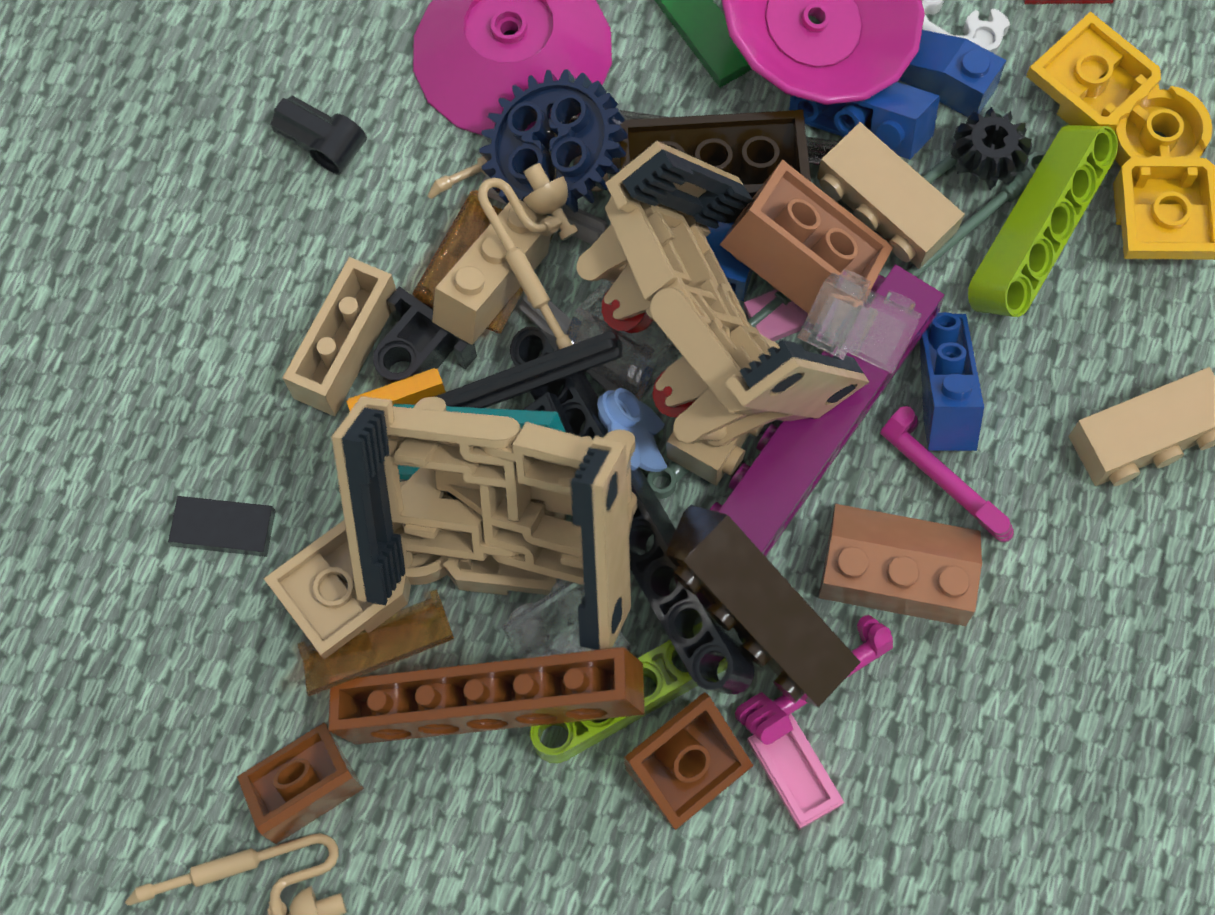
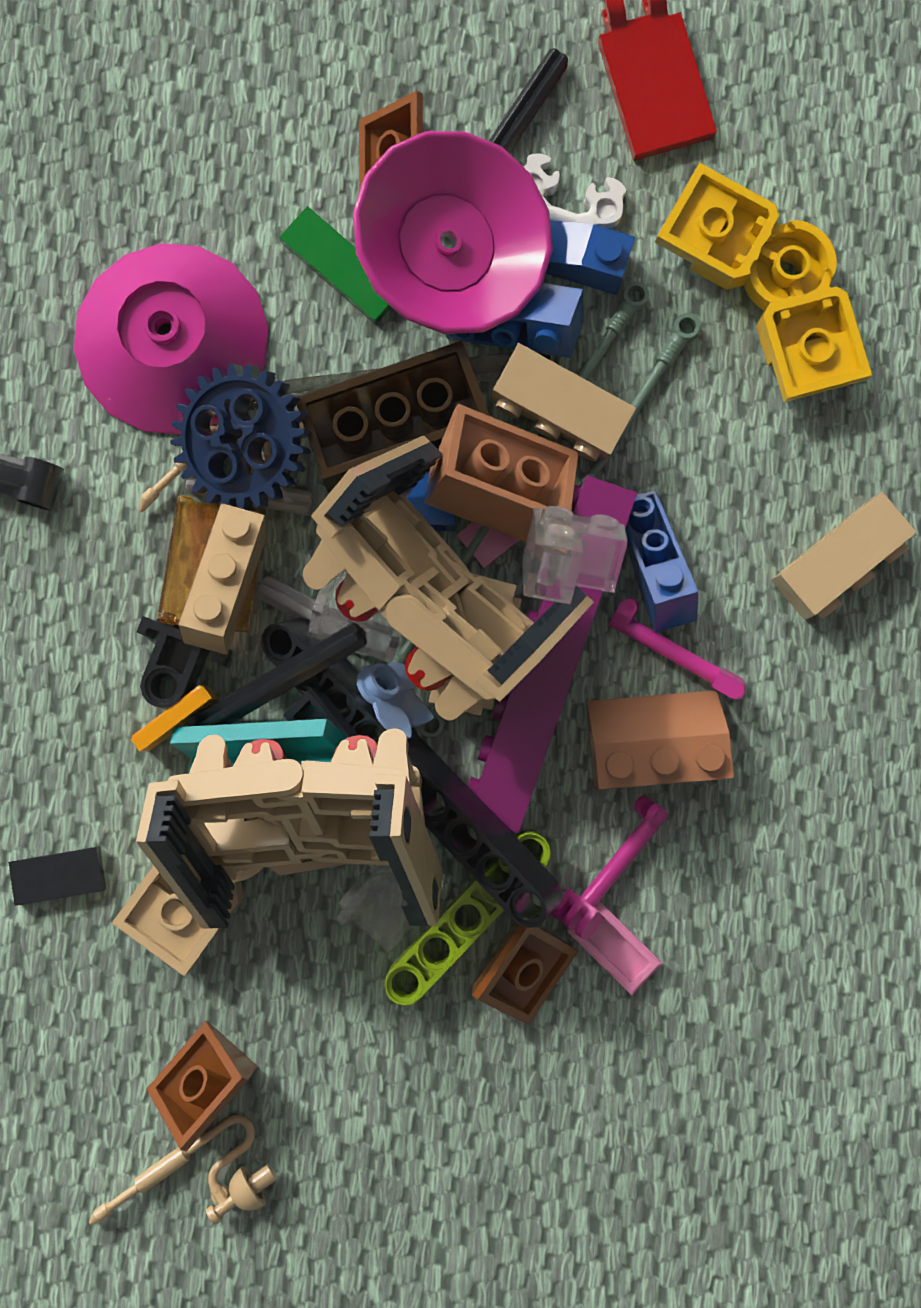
camera: 20 degrees left, 15 degrees up
(340, 337) = (105, 677): tan brick -> none
(397, 638) = (253, 936): clear orange piece -> none
(488, 696) = (341, 980): dark orange brick -> none
(545, 199) = (252, 502): tan piece -> none
(759, 605) = (548, 839): dark brown slope -> none
(991, 148) = (645, 344): black gear -> none
(1042, 220) = (704, 384): lime beam -> none

